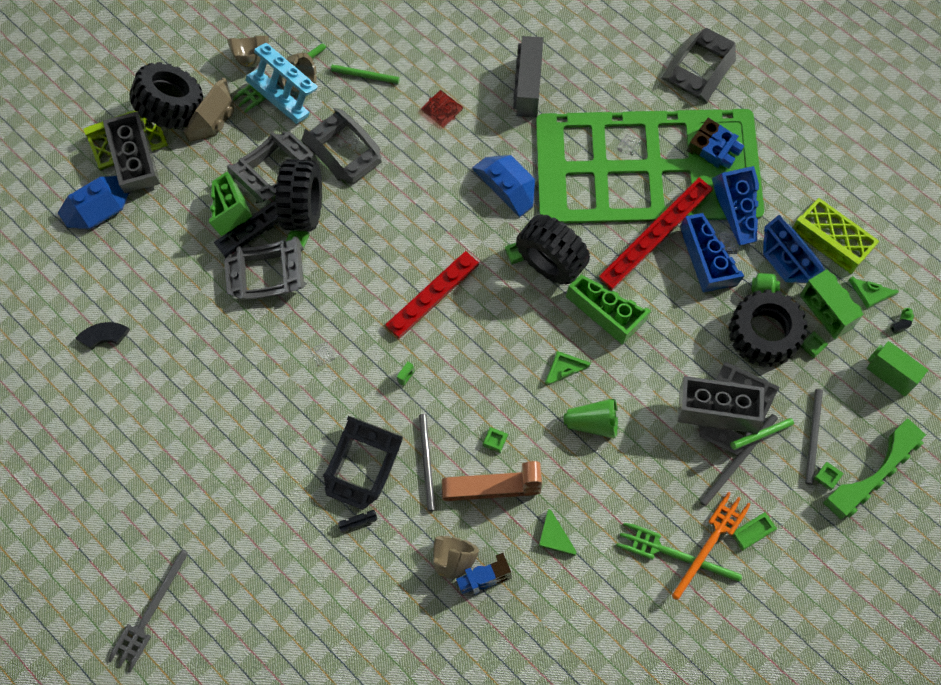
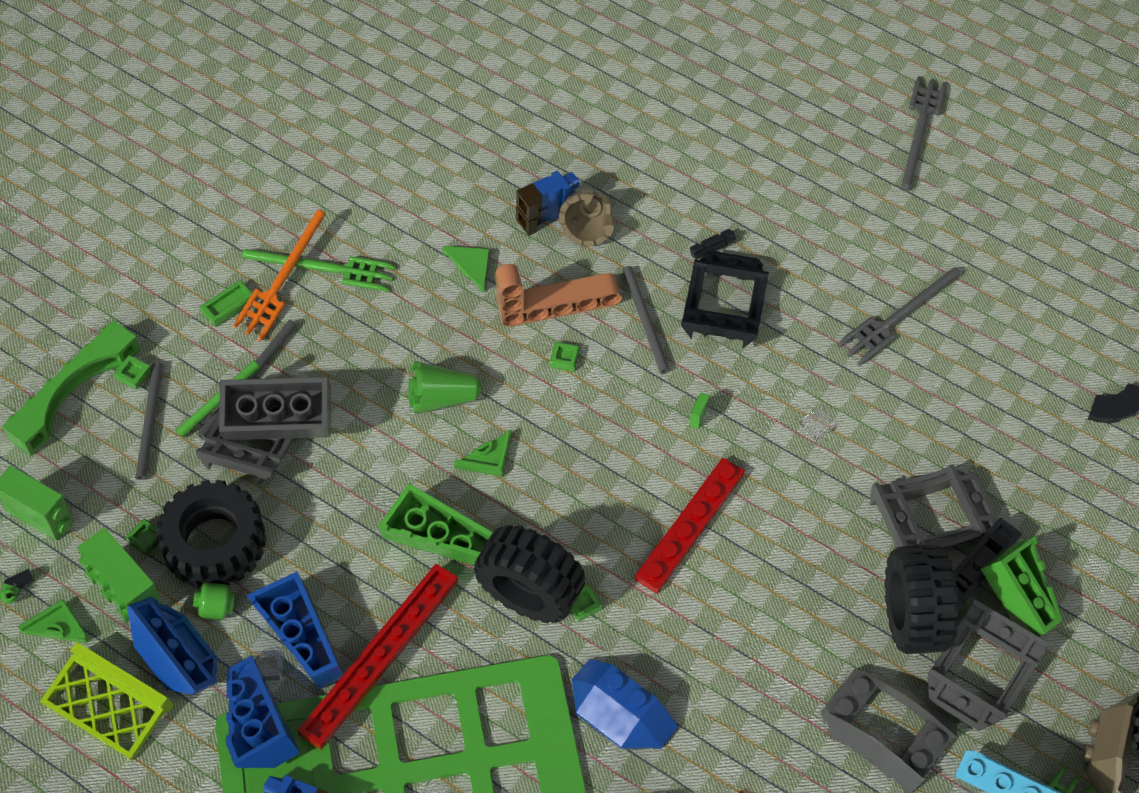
camera: 165 degrees right, 10 degrees down
(248, 425) = (882, 327): none -> dark grey piece

